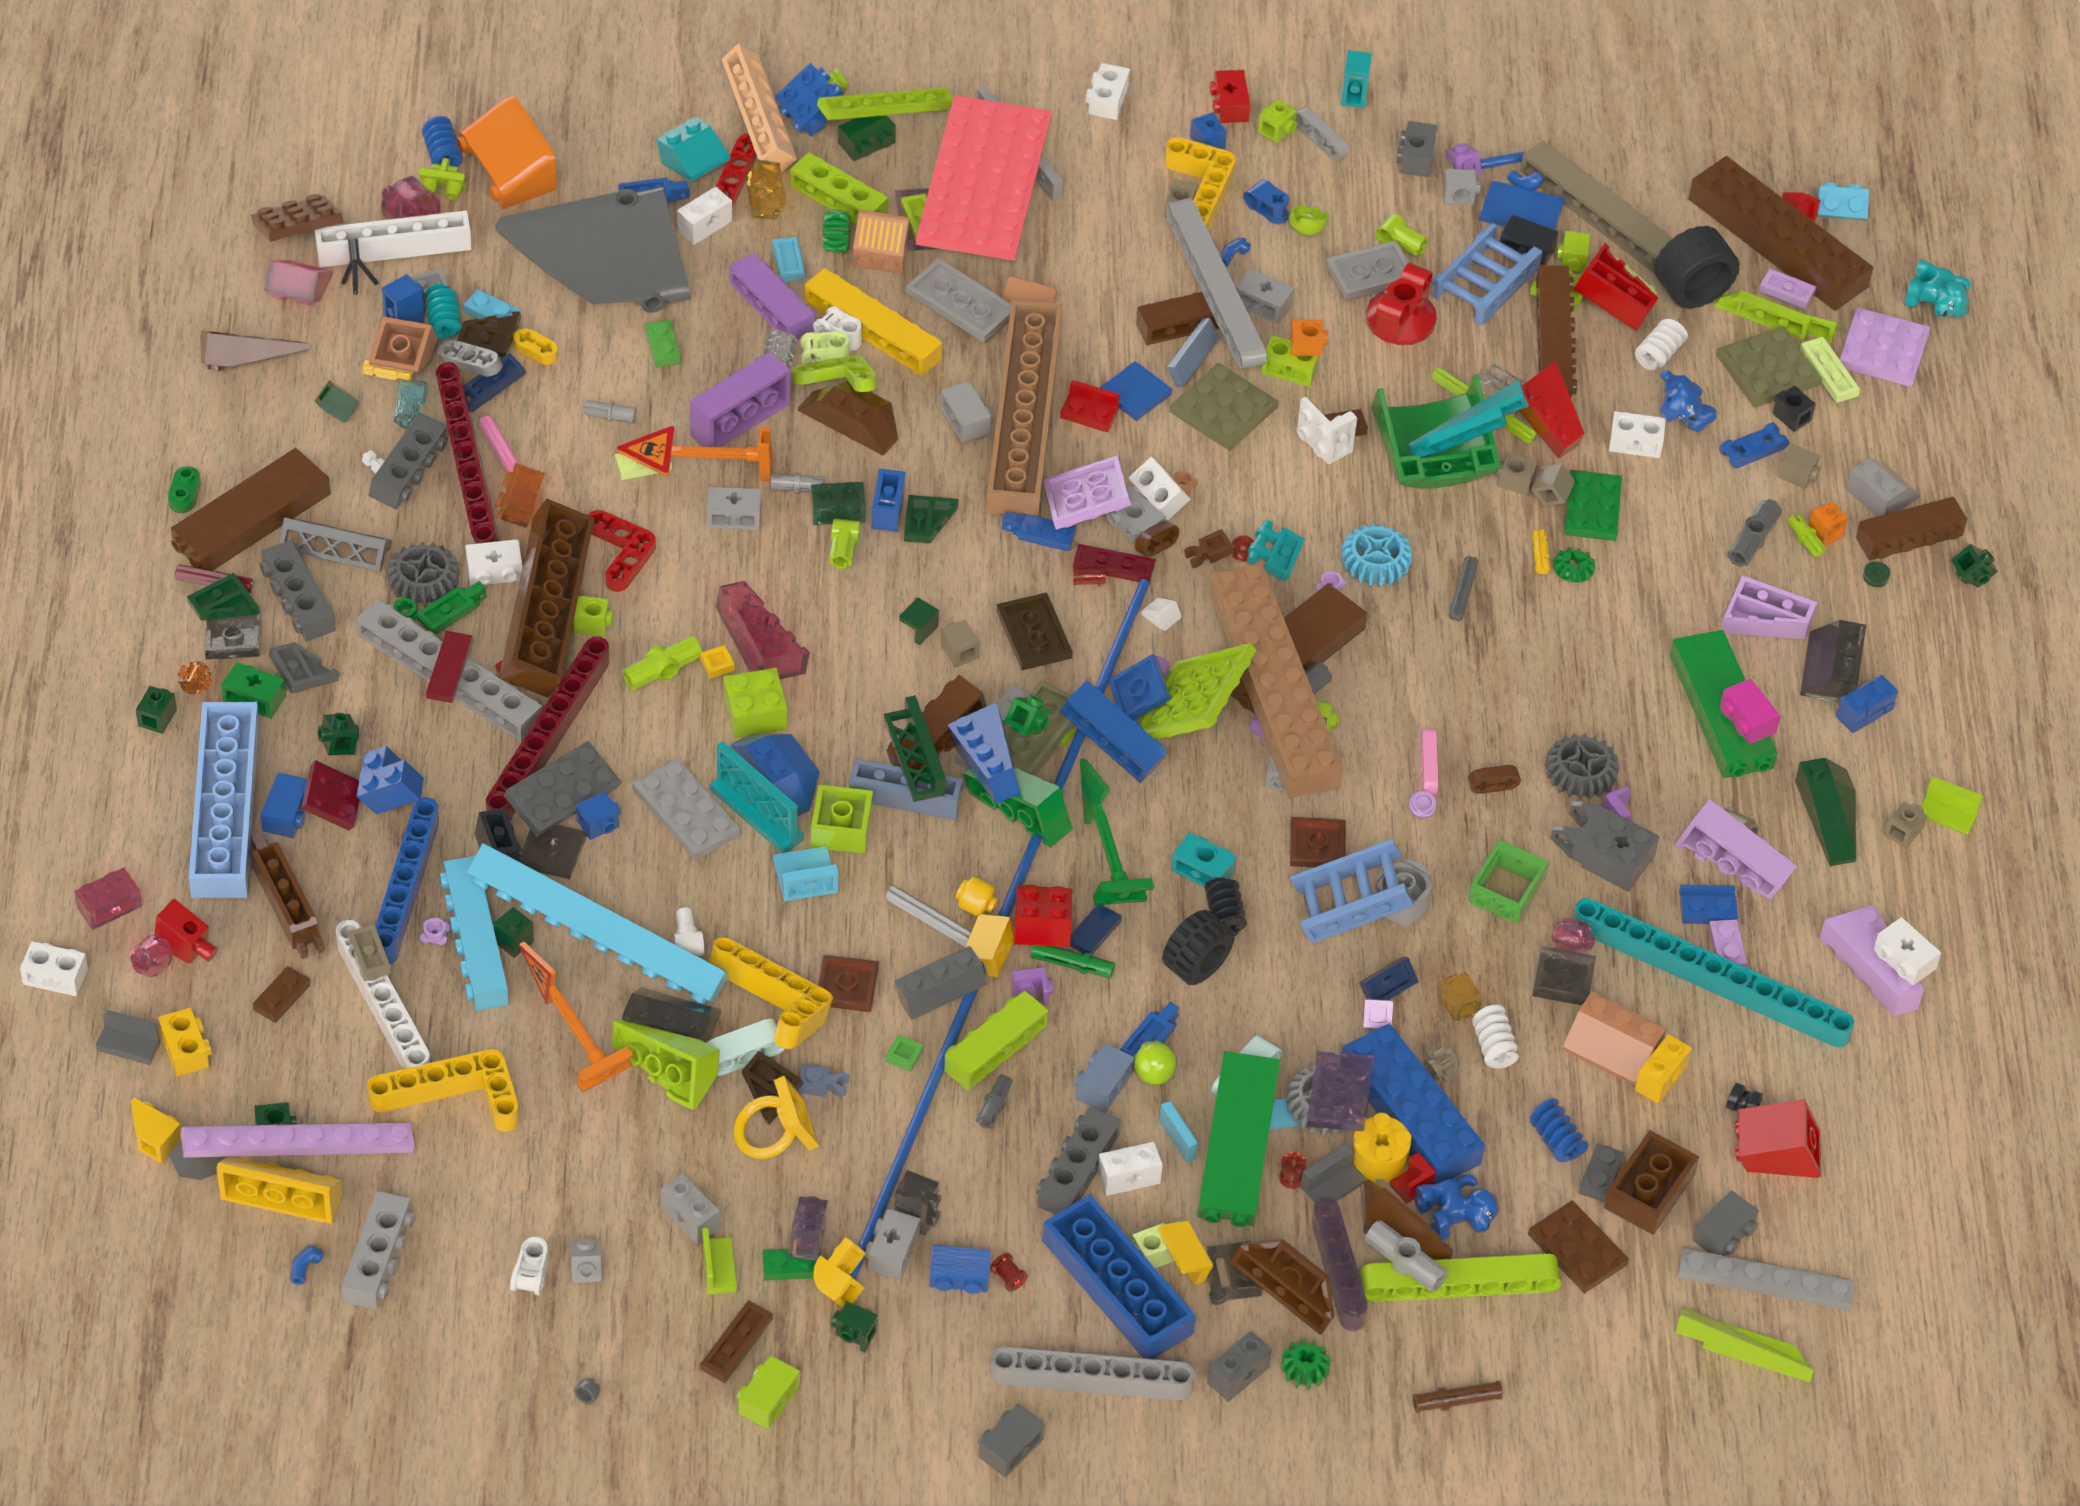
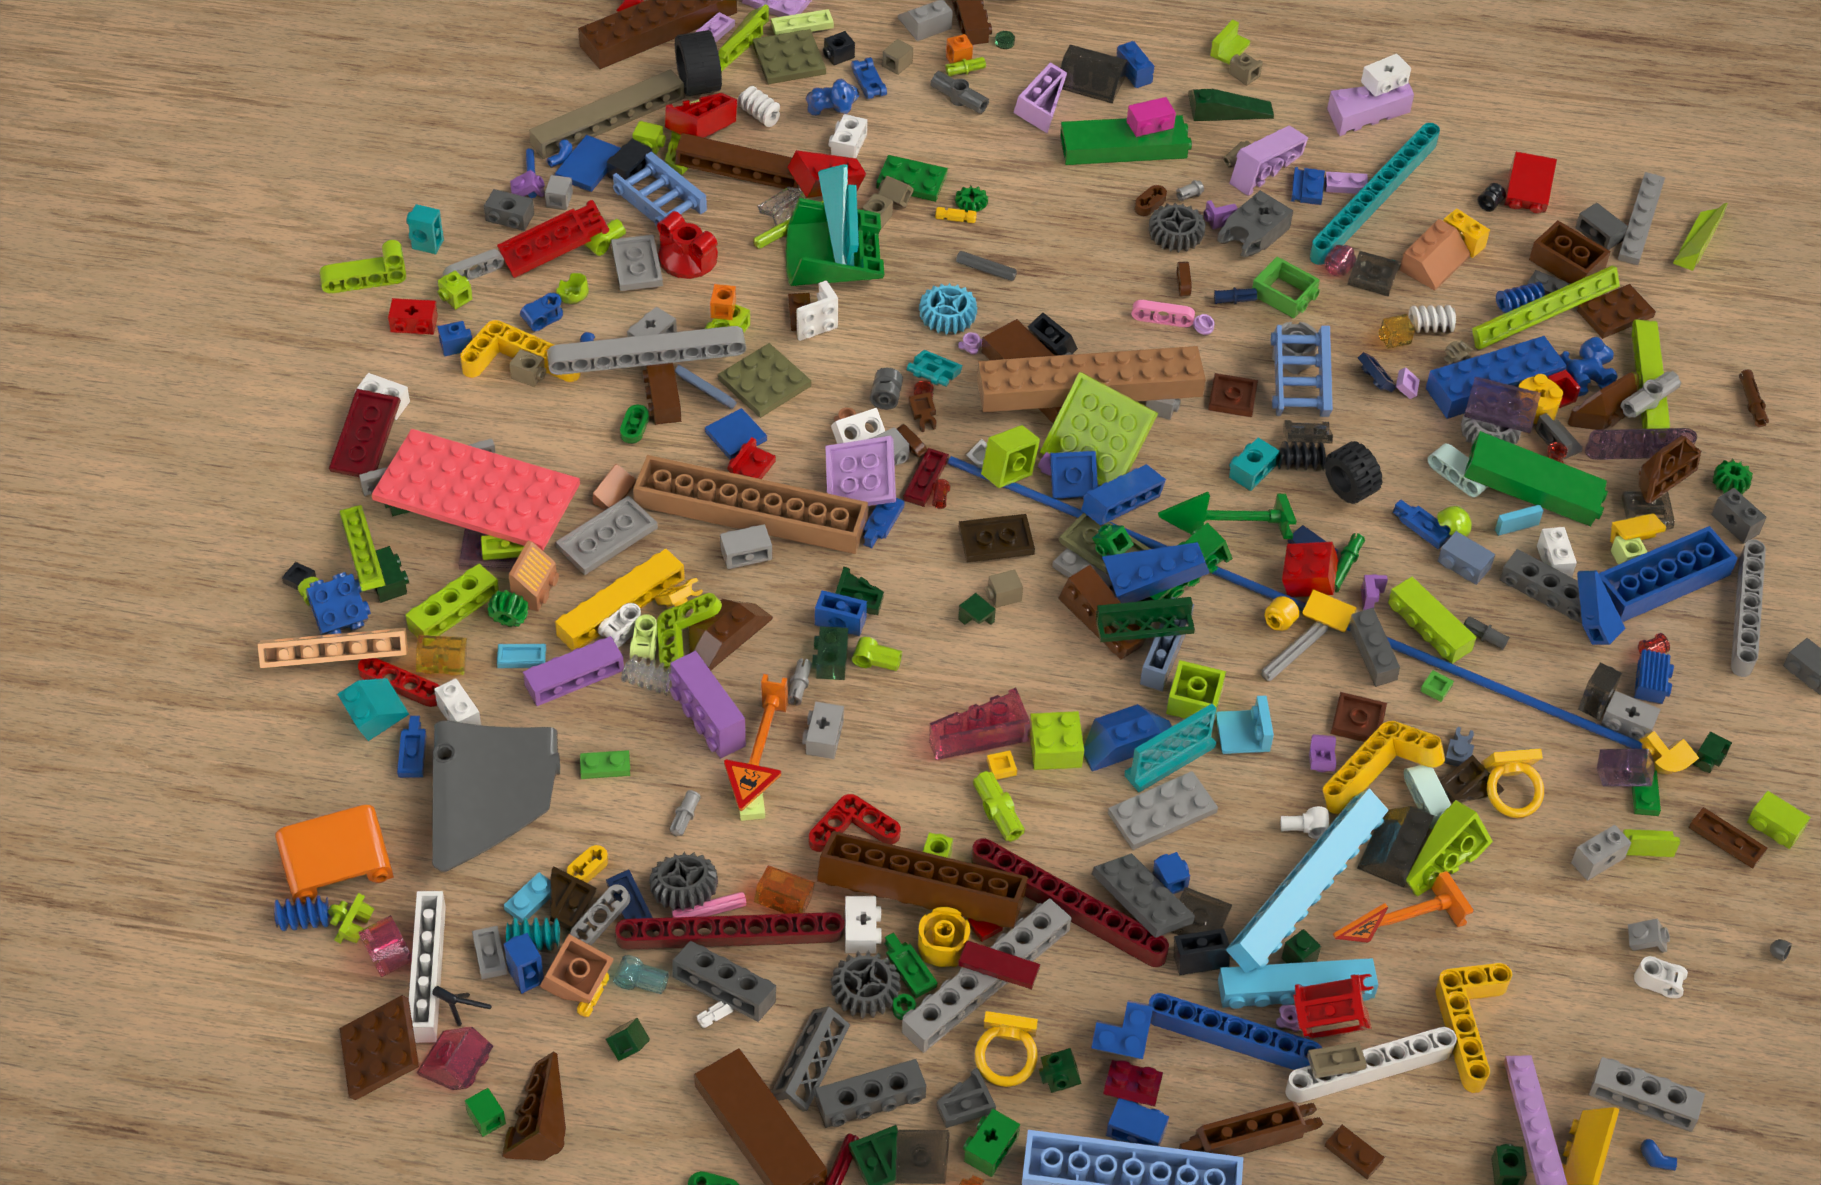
camera: 80 degrees left, 0 degrees up
(239, 306) = (485, 1112): none -> green panel
(382, 687) = (1009, 1028): none -> yellow tile
(416, 939) = (1332, 1004): none -> red animal
(487, 622) = (942, 937): none -> yellow brick
(520, 414) = (683, 881): none -> dark grey gear
(780, 945) = (1322, 753): none -> medium lavender bracket
(852, 70) = (297, 574): none -> black plate
(883, 360) = (677, 595): none -> yellow plate
(1028, 1205) = (1597, 610): none -> blue slope
(1049, 83) = (364, 433): none -> dark red tile
(1123, 300) = (633, 428): none -> green plate
(1141, 619) = (1010, 456): none -> lime brick
(1230, 508) = (886, 388): none -> dark grey wheel
(1259, 913) = (1307, 432): none -> clear smoke plate
(1293, 58) = (365, 272): none -> lime beam
(1350, 651) = (1052, 335): none -> black brick
(1375, 187) = (552, 238): none -> red hinge
(1481, 831) = (1235, 295): none -> dark blue axle
(1550, 1158) = (1545, 307): none -> lime tile
(1627, 741) = (1153, 202): none -> reddish brown beam
(1661, 783) = (1195, 188): none -> light grey pin

